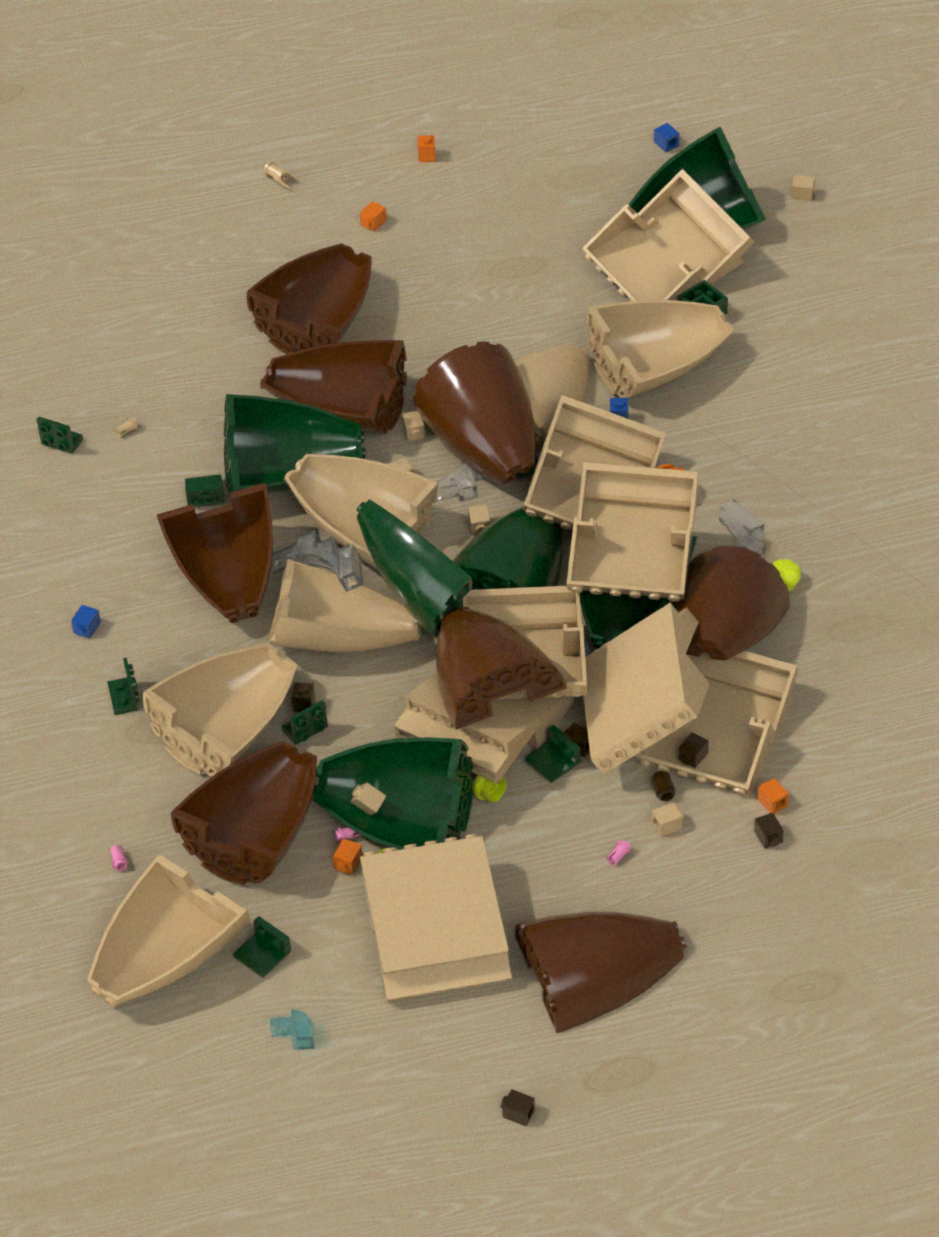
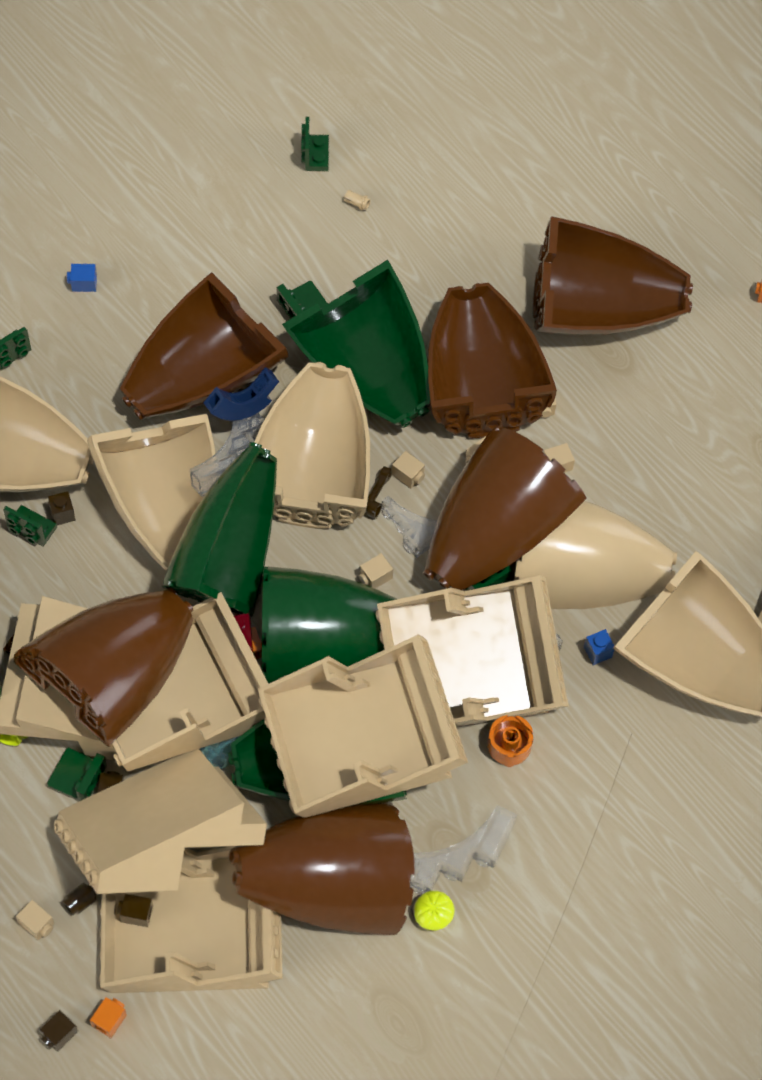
camera: 60 degrees right, 15 degrees up
(288, 532) = (244, 403): none -> dark blue arch

